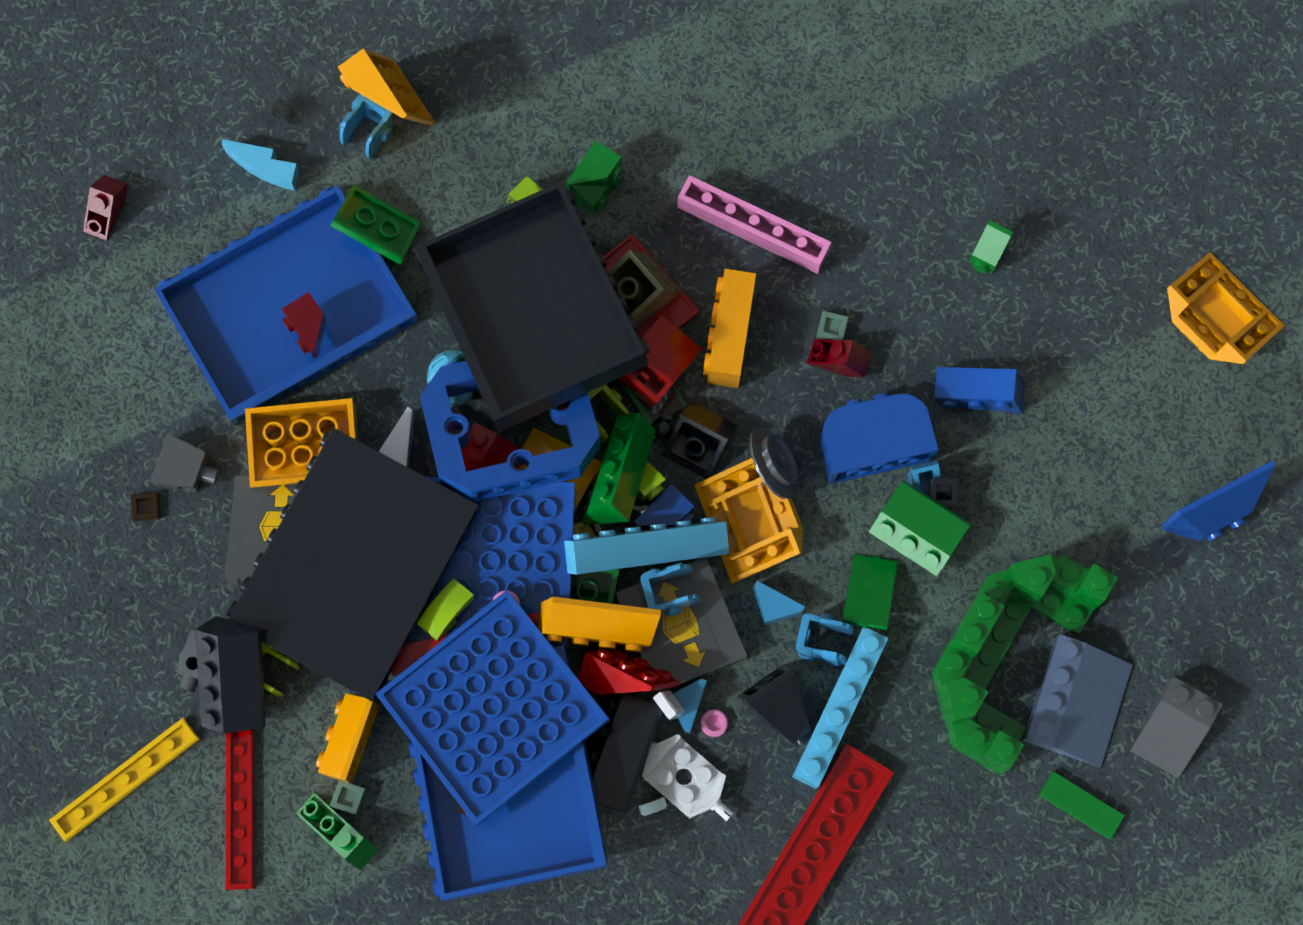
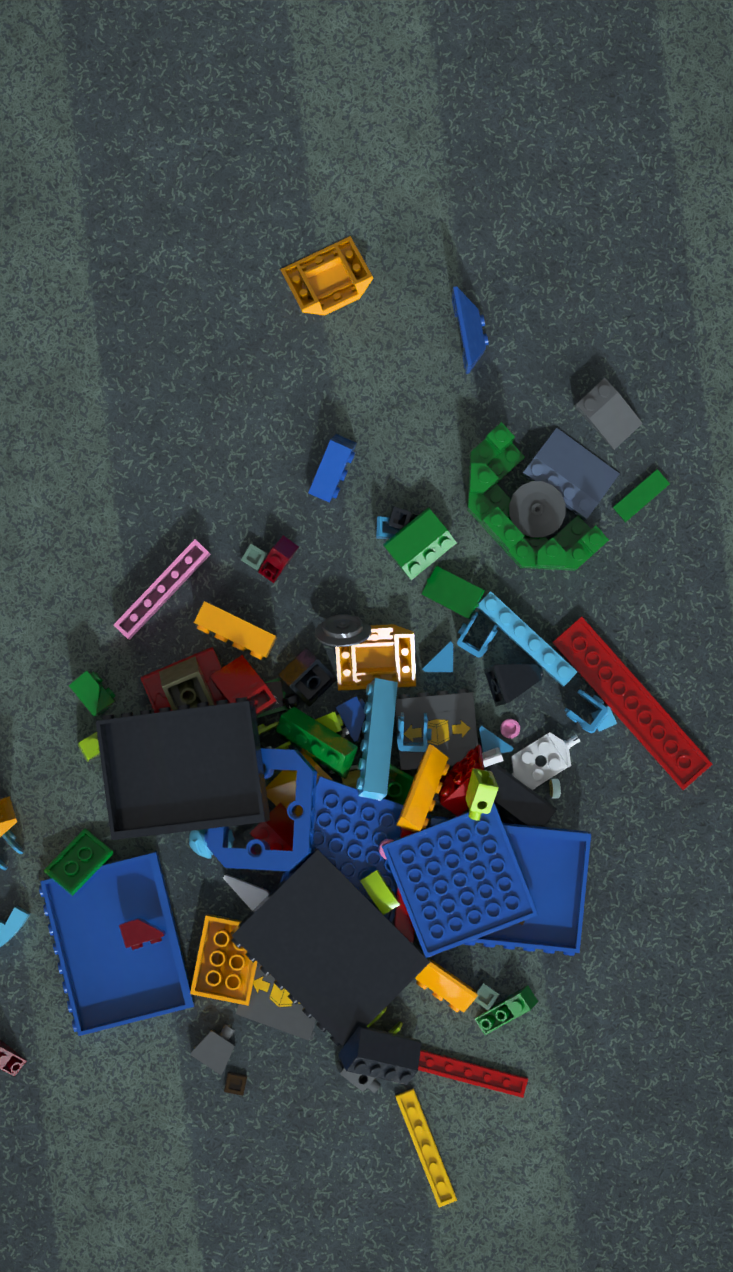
camera: 70 degrees left, 10 degrees up
(615, 694) = (481, 793): none -> lime torso
(762, 834) = (596, 701): none -> dark azure piece
(766, 845) = (607, 722): none -> medium azure tile
(876, 437) = (345, 553): blue brick -> none
(990, 247) = (232, 426): slope -> none
(1017, 667) = (537, 509): none -> dark grey piece

